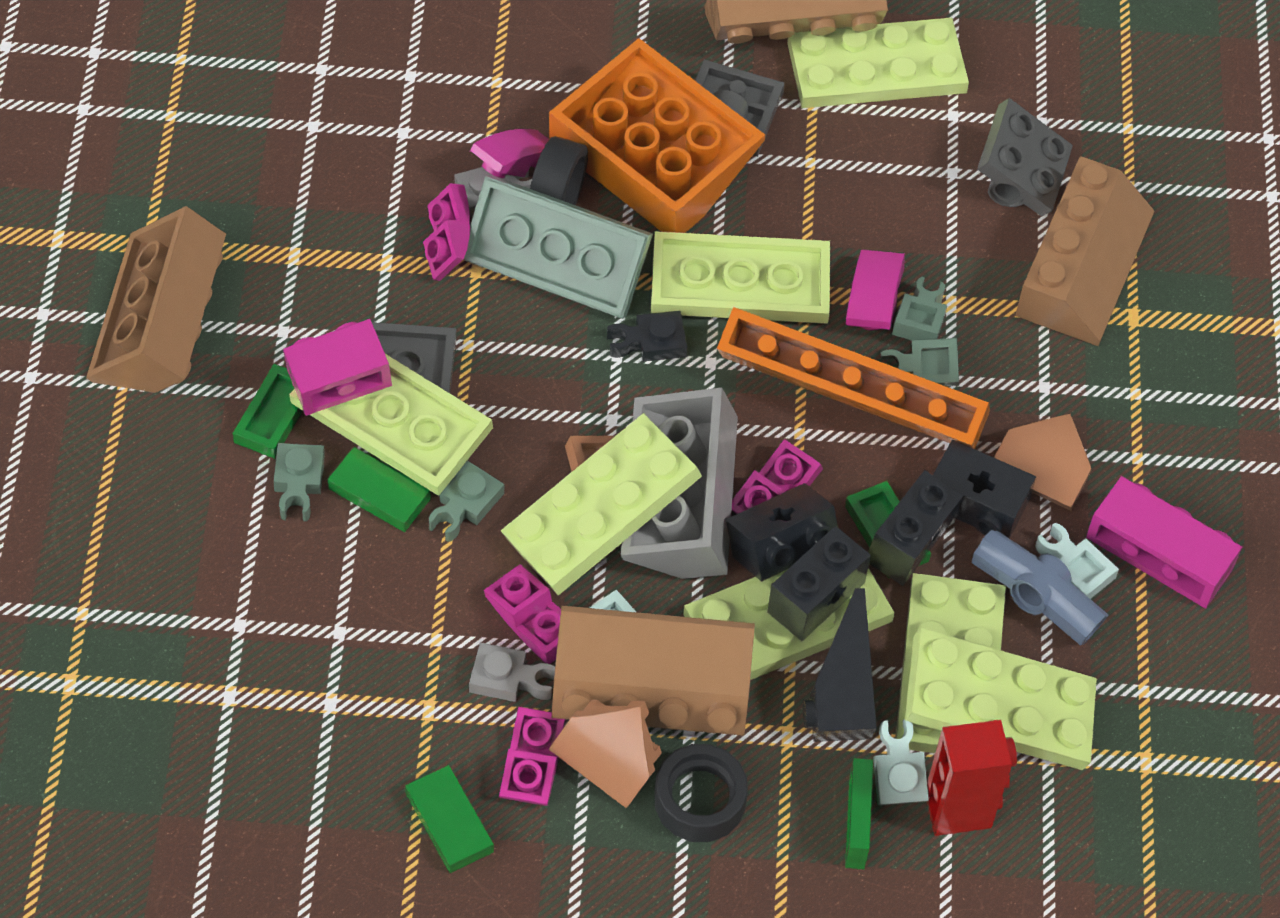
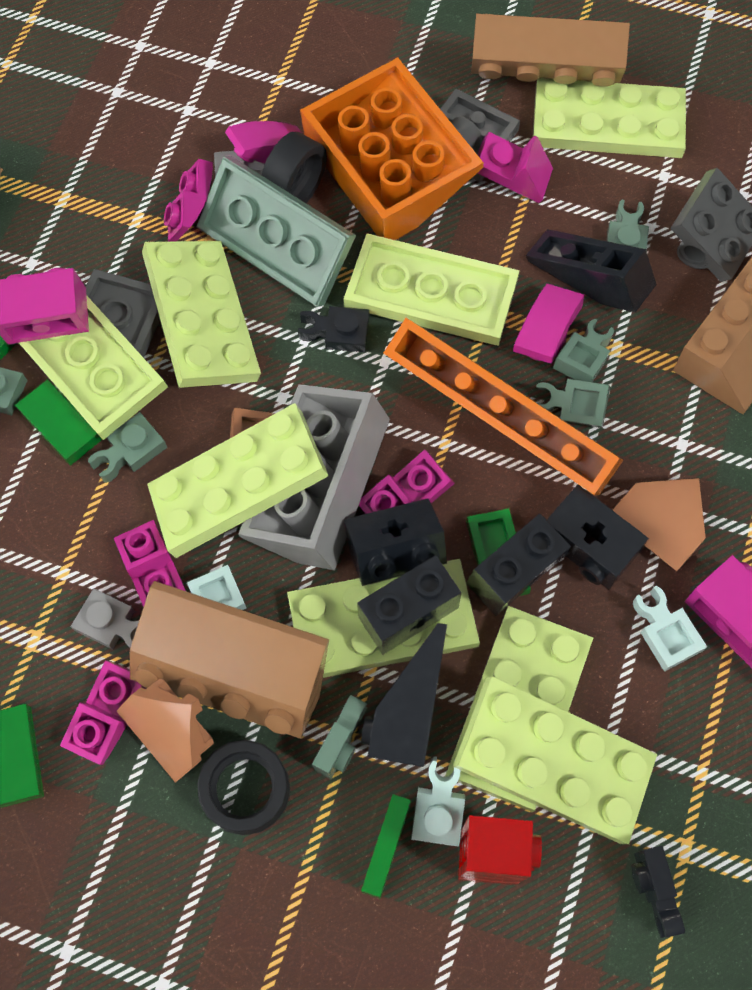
camera: 20 degrees right, 10 degrees up
(500, 346) = (200, 313): none -> yellowish green plate
(783, 739) = (336, 749): none -> sand green plate
(794, 134) = (517, 168): none -> dark pink slope
(912, 224) = (598, 268): none -> black slope
(931, 190) = (627, 228): none -> sand green plate
(1039, 585) = (626, 647): sand blue piece -> none
(1125, 787) = (654, 879): none -> black plate

